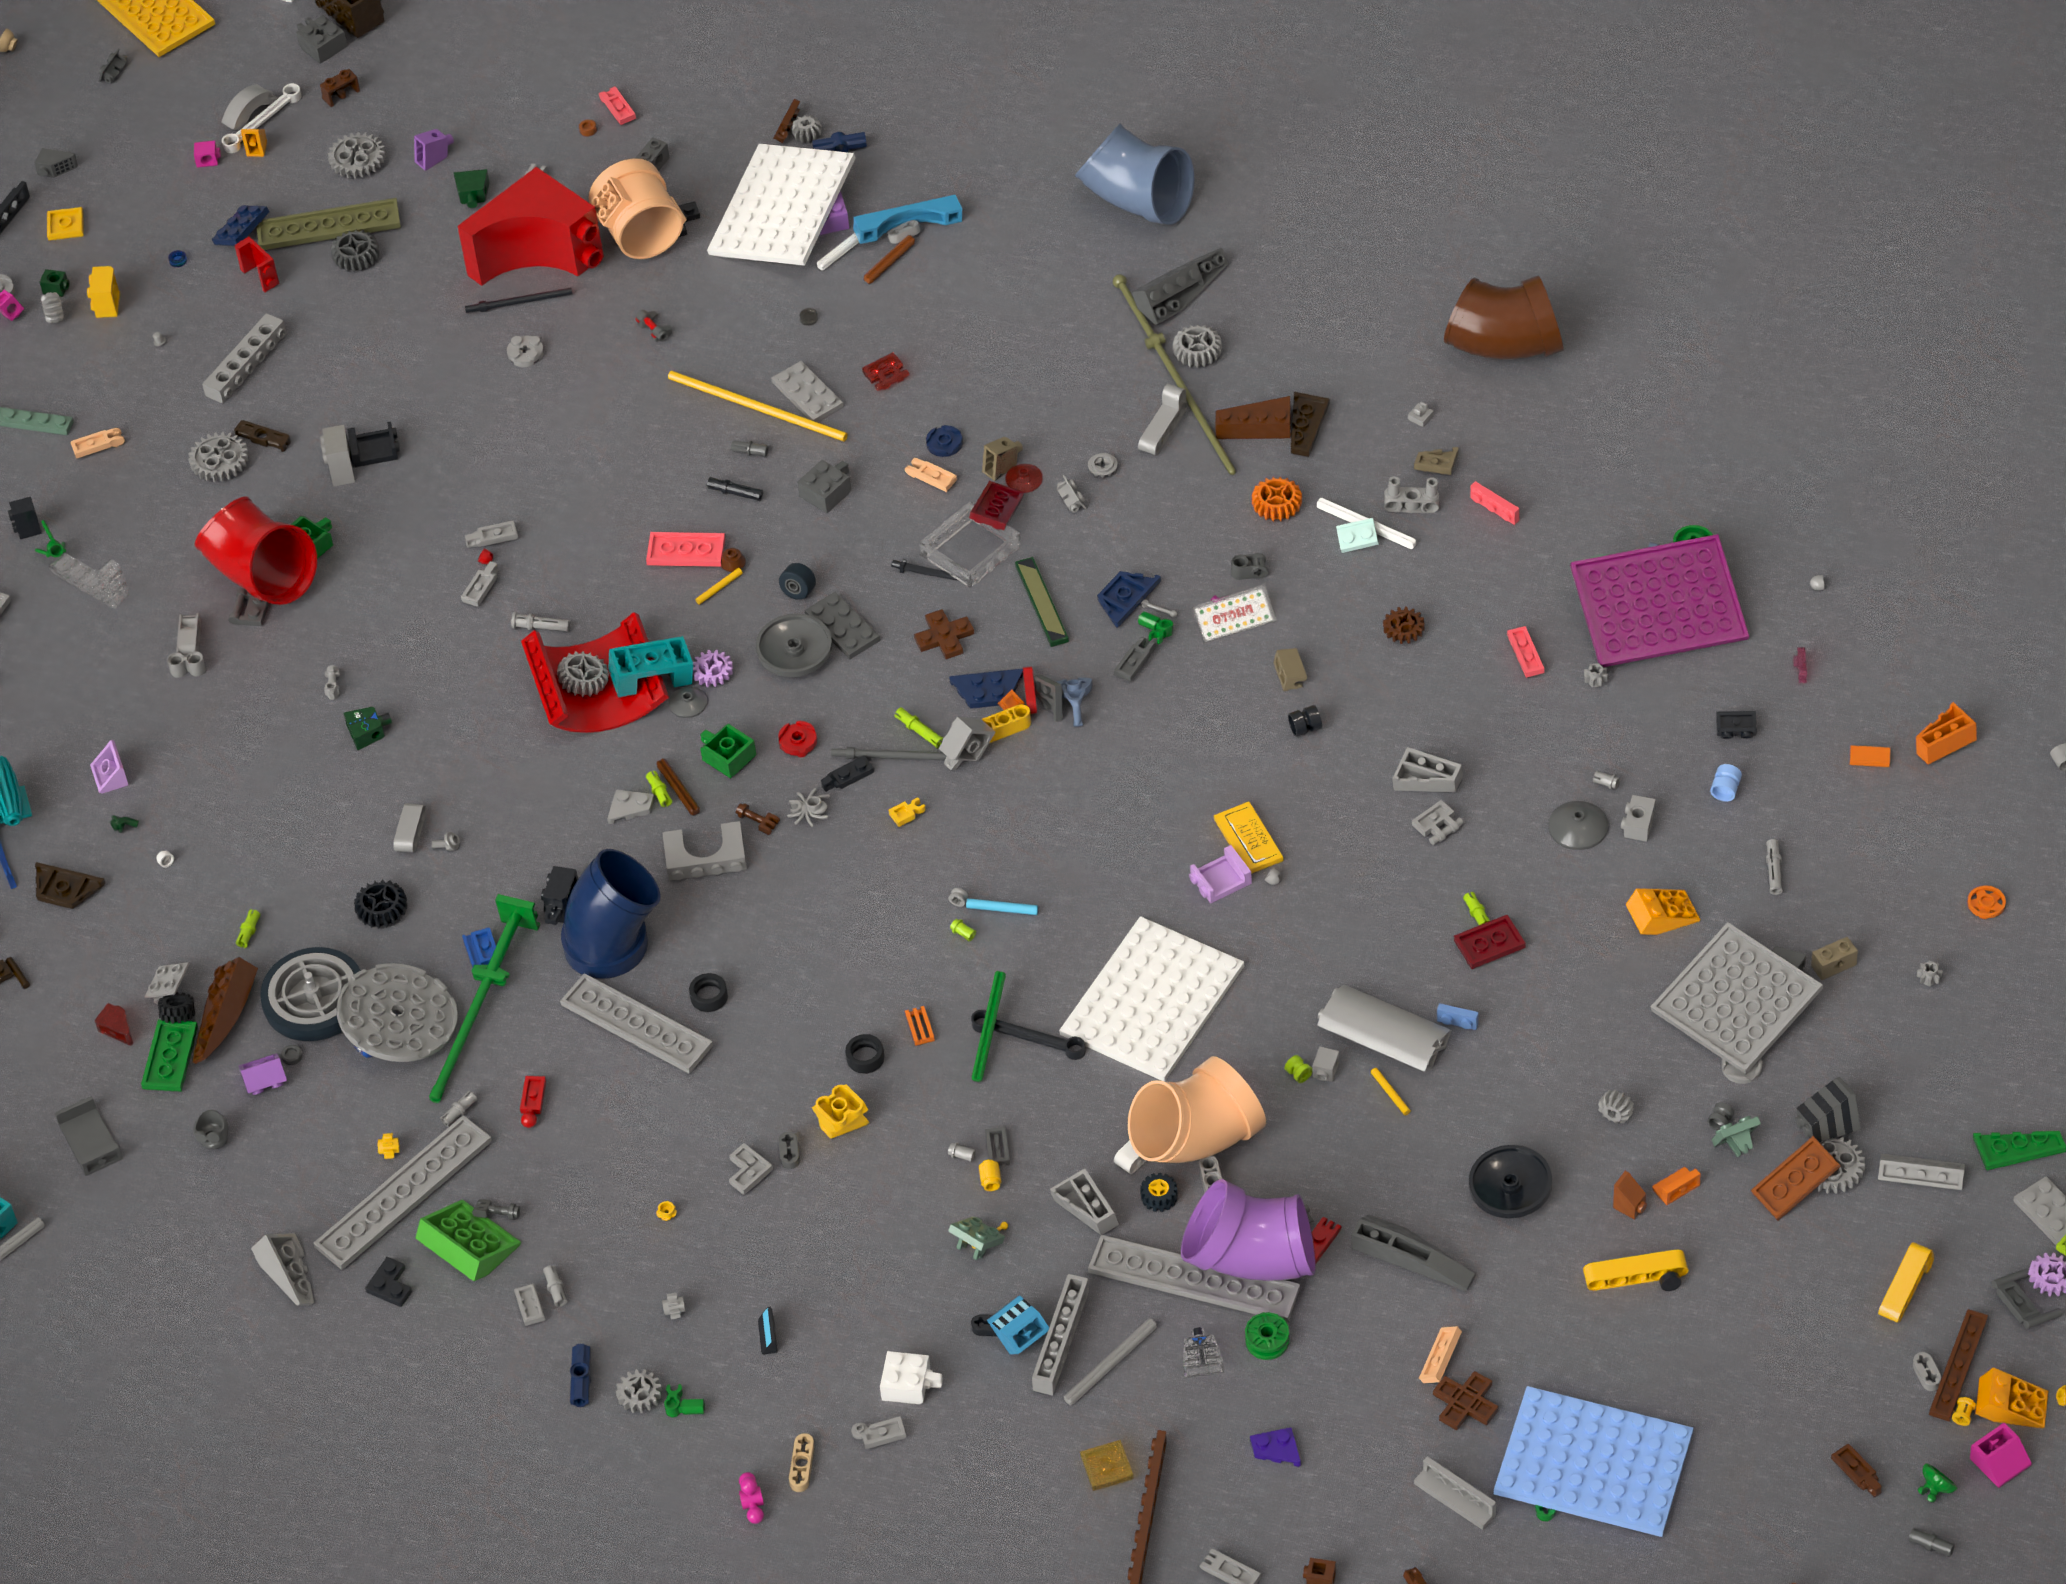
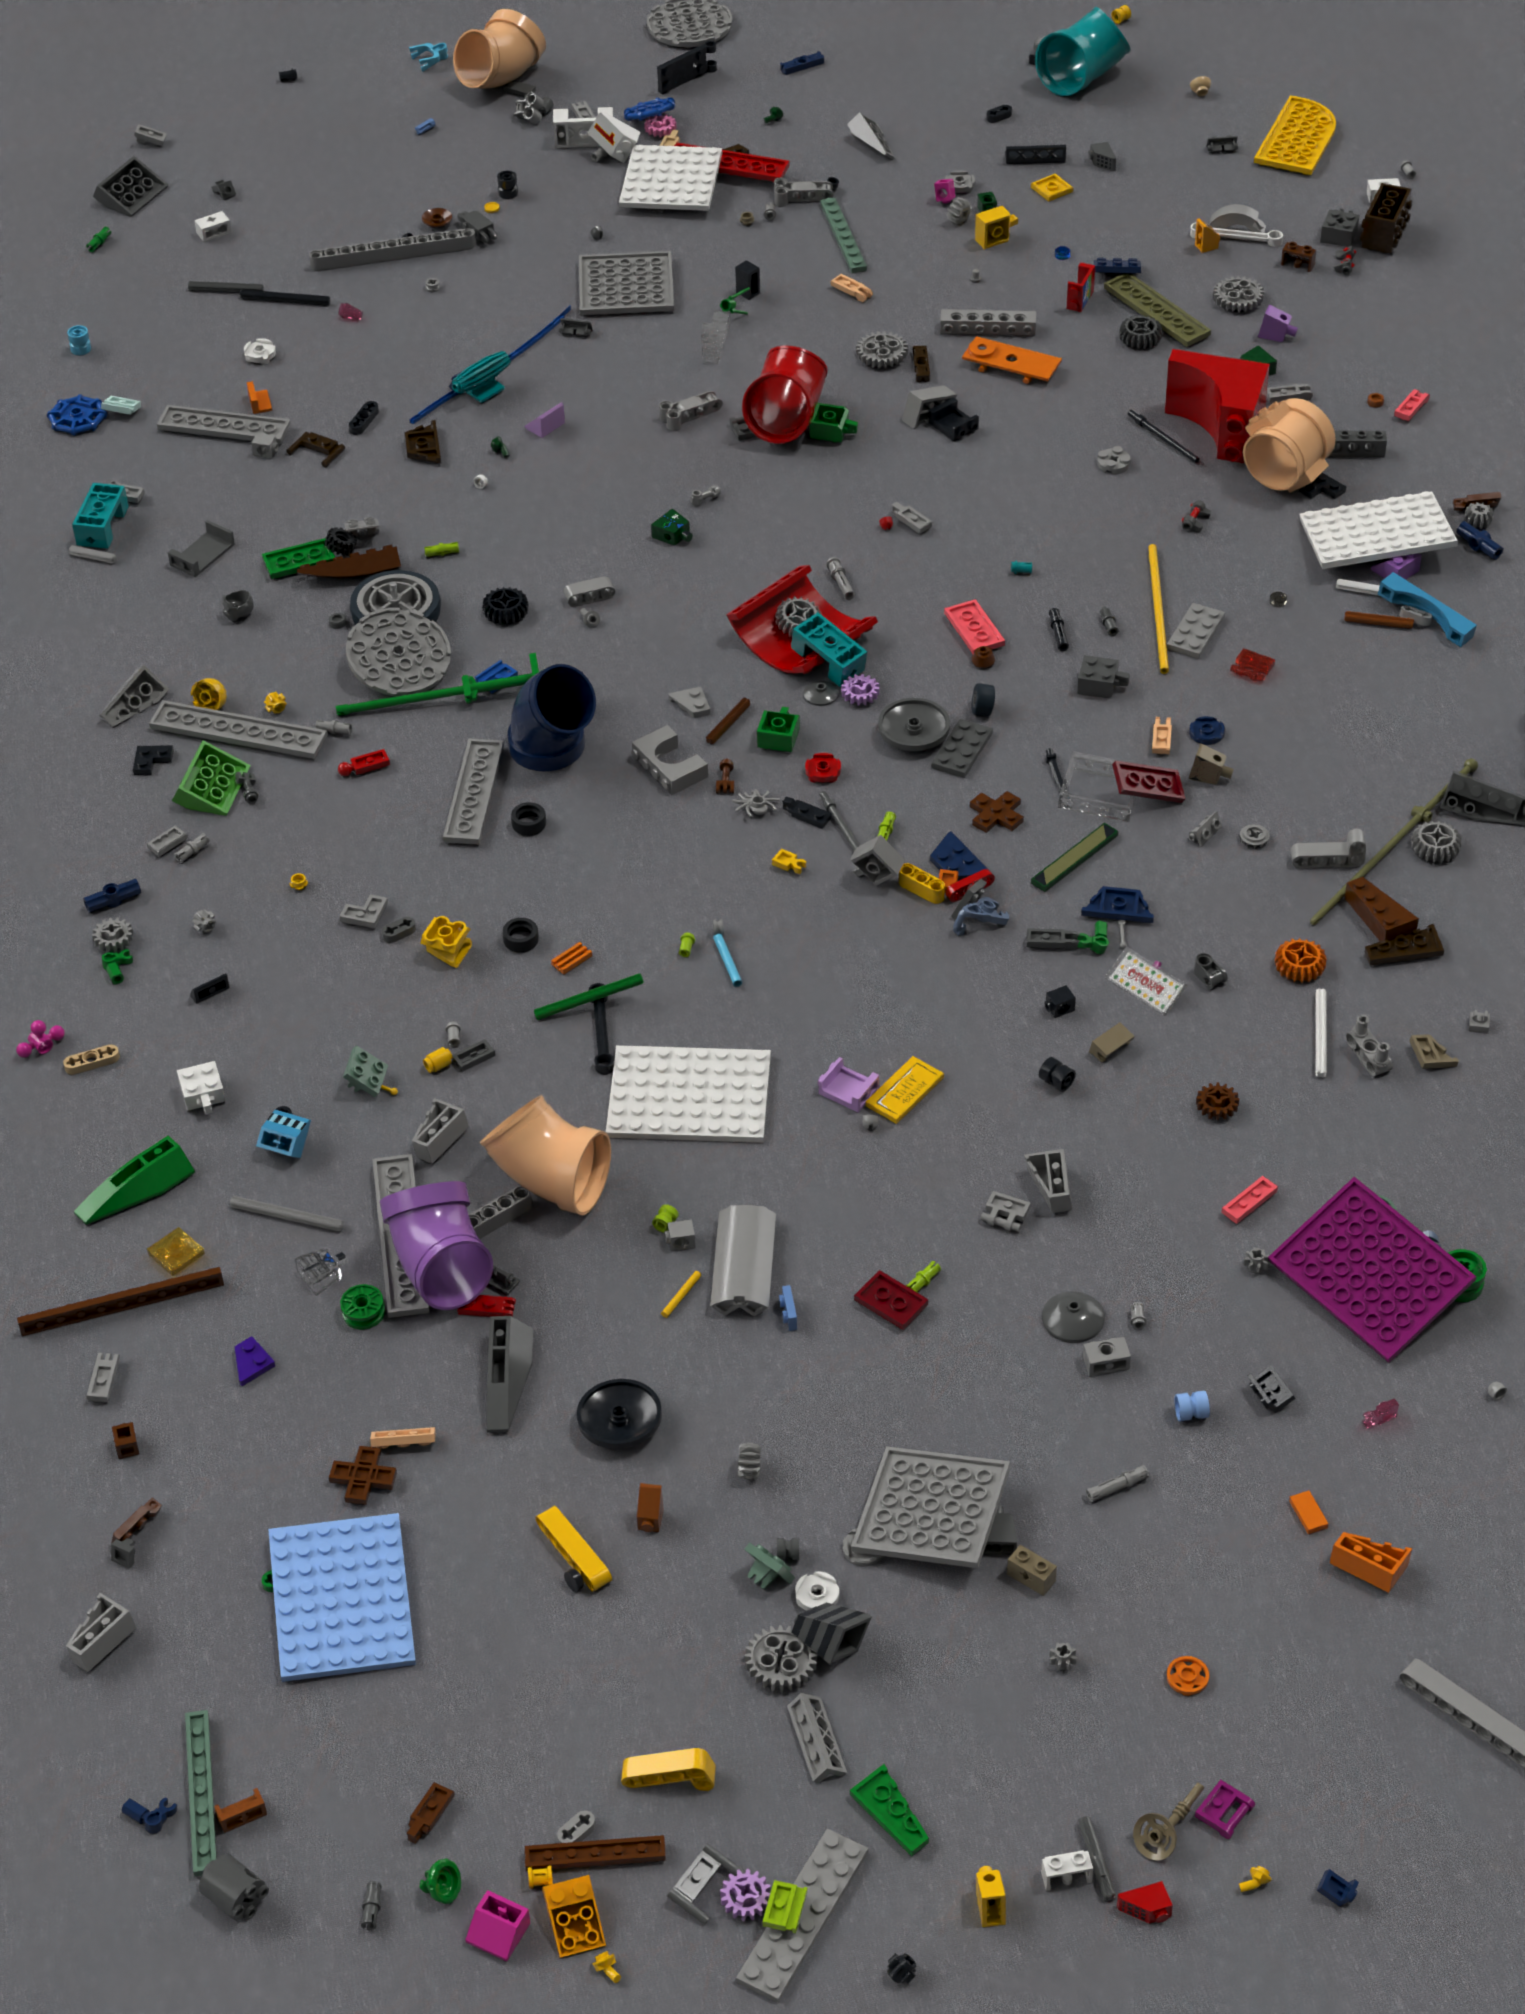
camera: 60 degrees right, 5 degrees down
(114, 1023) = (311, 519): clear red slope -> none
(206, 154) = (1174, 221): dark pink brick -> none
(262, 1074) = (306, 610): medium lavender slope -> none
(336, 351) = (1028, 362): none -> orange piece
(338, 1198) = (209, 694): none -> yellow cylinder
(377, 59) = (1345, 265): none -> dark grey piece
(480, 585) = (856, 531): light grey hinge -> none
(625, 483) = (1023, 567): none -> teal pin
(659, 788) = (717, 709): lime pin -> none
(718, 586) = (950, 661): yellow bar -> none
(880, 1432) = (141, 1094): light grey hinge -> none
(1001, 1468) = (137, 1181): none -> green wedge
(1024, 478) = (1204, 794): clear red dish -> none
(1060, 1334) = (291, 1166): light grey brick -> none
(1151, 1191) = (480, 1176): black wheel -> none
(1217, 684) = (1060, 1001): none -> black brick
(1357, 535) = (1299, 1030): light aqua plate -> none
(1456, 1493) = (256, 1507): light grey fence -> none
(1494, 503) = (1409, 1110): coral plate -> none
(1661, 910) = (1008, 1415): light orange slope -> none
(1677, 1185) = (691, 1546): orange panel -> none
(1772, 1124) = (821, 1581): none -> white plate
(1795, 1178) = (742, 1632): dark orange plate -> none

